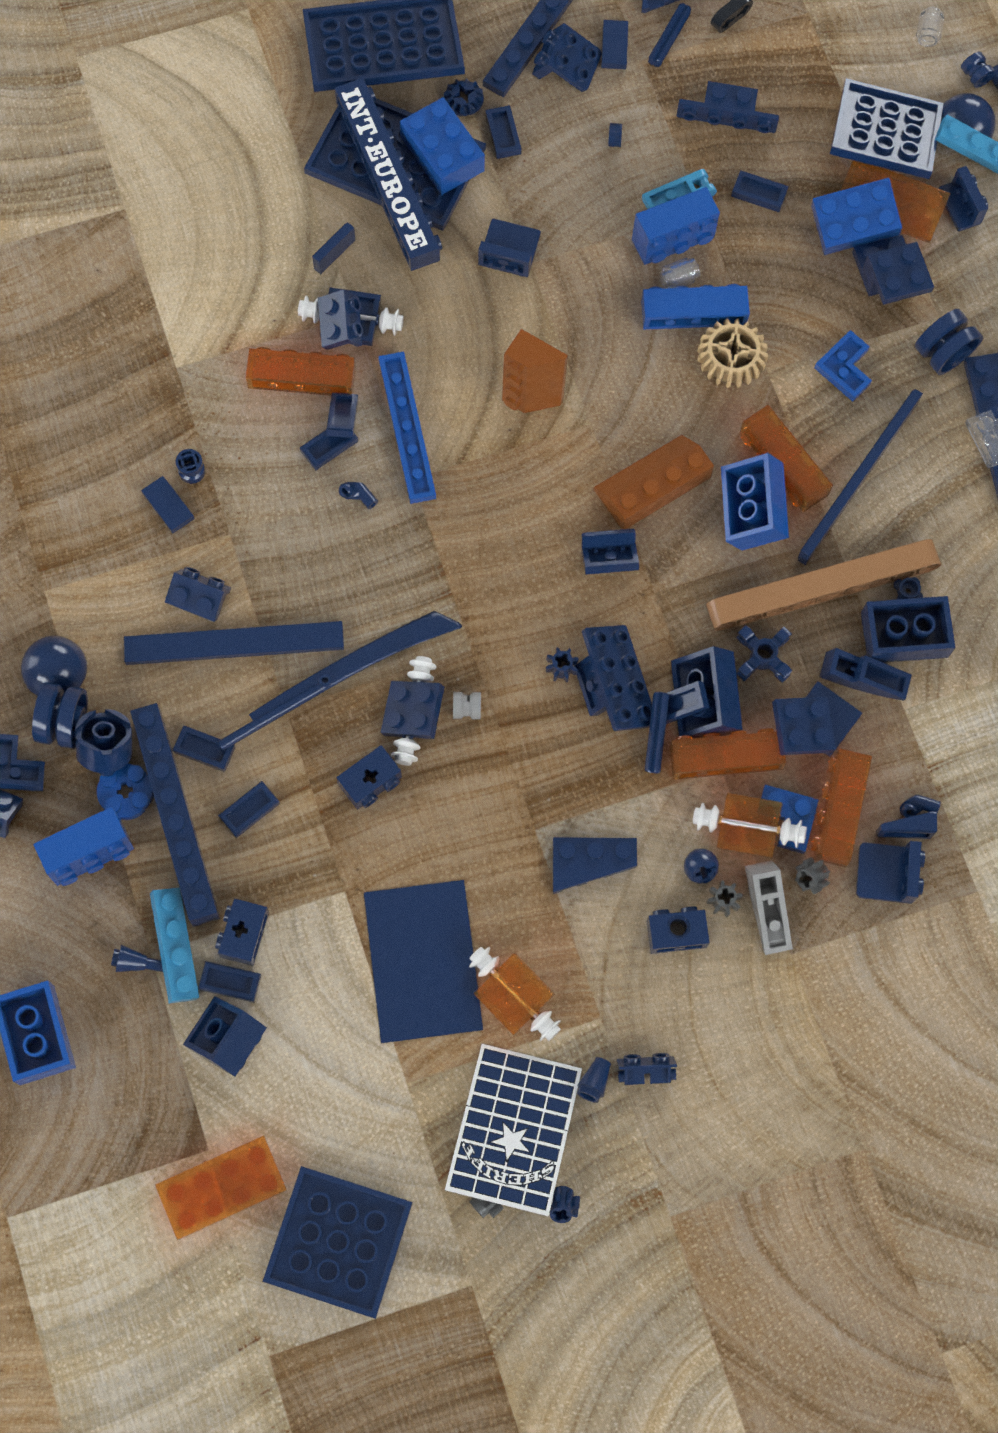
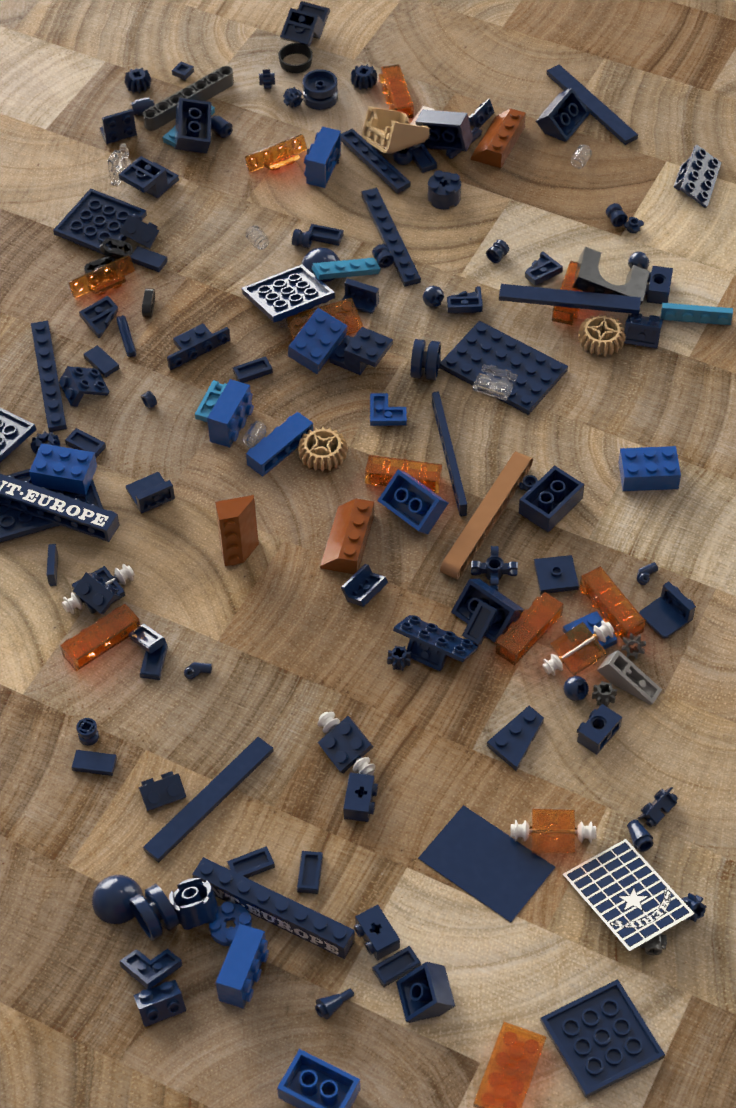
camera: 40 degrees left, 20 degrees down
(174, 945) = (346, 974): dark azure plate -> none
(407, 427) = (189, 617): blue plate -> none
(413, 633) = (297, 723): dark blue piece -> none
(467, 705) = (370, 719): light grey wheel -> none
(656, 732) = (483, 647): dark blue axle -> none
(803, 725) = (552, 580): dark blue plate -> none
(865, 674) = (552, 537): dark blue slope -> none
(918, 826) = (654, 584): dark blue slope -> none

